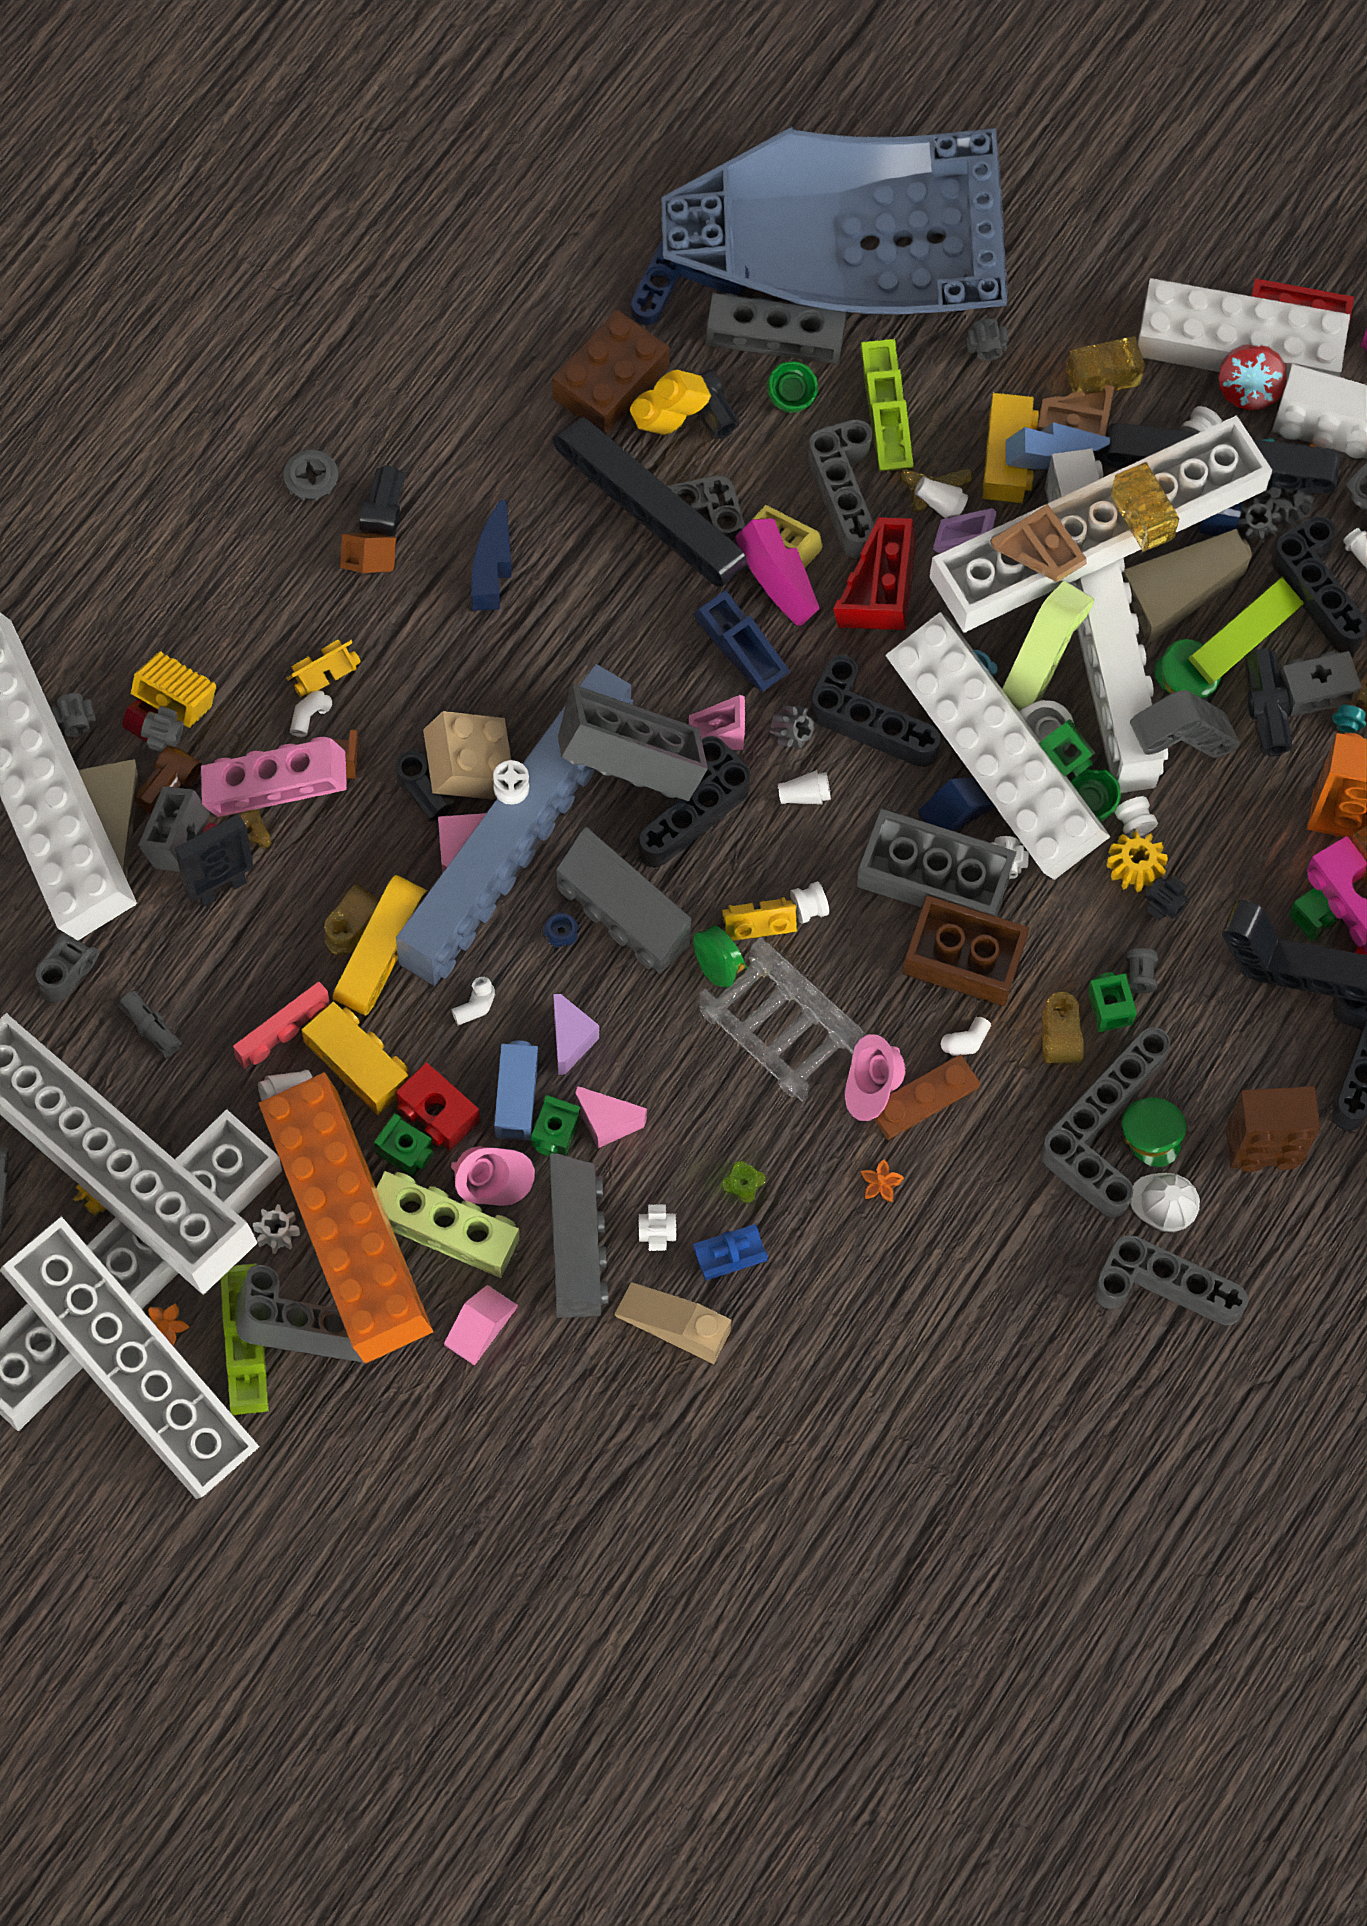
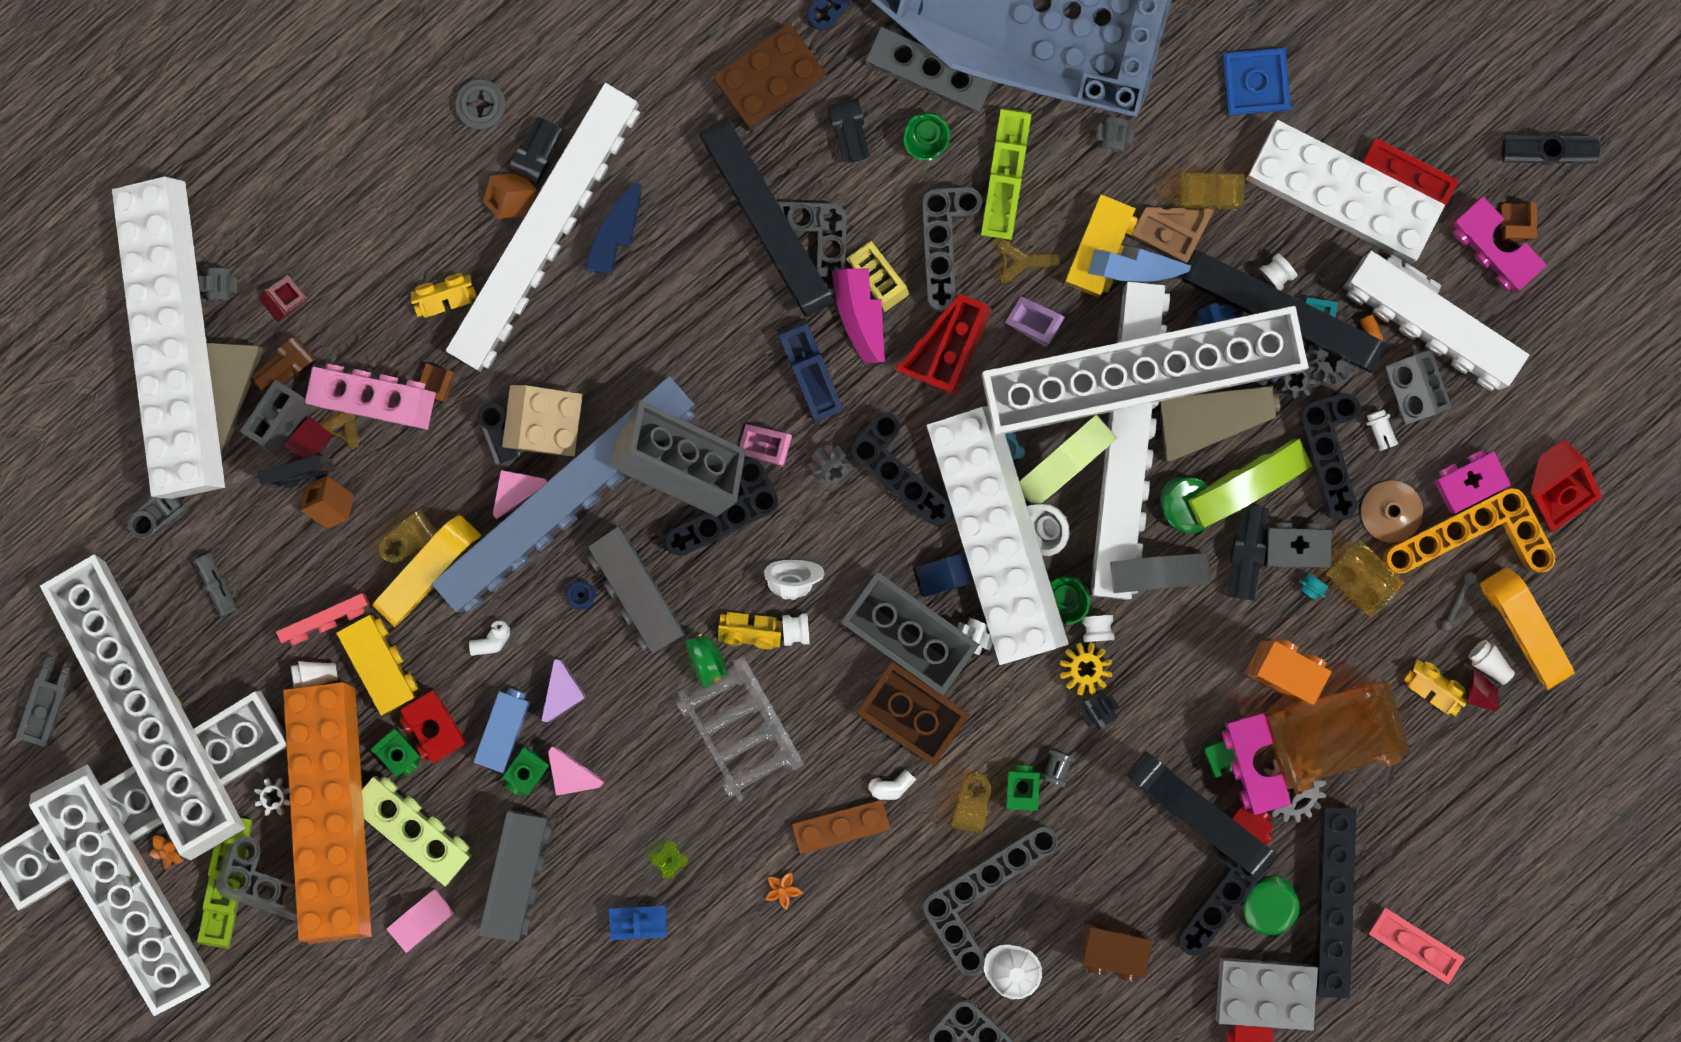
camera: 20 degrees right, 20 degrees up
(162, 729) = (288, 323): dark grey gear -> none
(175, 687) = (309, 284): yellow brick -> none
(253, 905) = (327, 502): none -> dark orange panel
(305, 709) = (420, 329): white arm -> none
(412, 577) = (543, 227): none -> white brick
(493, 1176) = (459, 801): bright pink piece -> none
(511, 773) = (559, 466): white wheel -> none
(657, 1227) = (584, 883): white gear -> none
(670, 402) = (811, 127): yellow brick -> none
(675, 1321) = (576, 964): tan slope -> none
(790, 853) = (792, 577): none -> white piece
(806, 789) = (824, 523): white cone -> none
(872, 1076) = (801, 802): bright pink piece -> none
(942, 497) = (1026, 280): white cone -> none
(1041, 545) = (1079, 391): medium nougat wing -> none
(1055, 744) = (1050, 568): green brick -> none
(1114, 262) = (1256, 82): none -> blue tile
(1144, 506) = (1180, 381): clear yellow brick -> none
(1154, 1130) = (1021, 910): green piece -> none
(1252, 377) = (1338, 239): red tile -> none

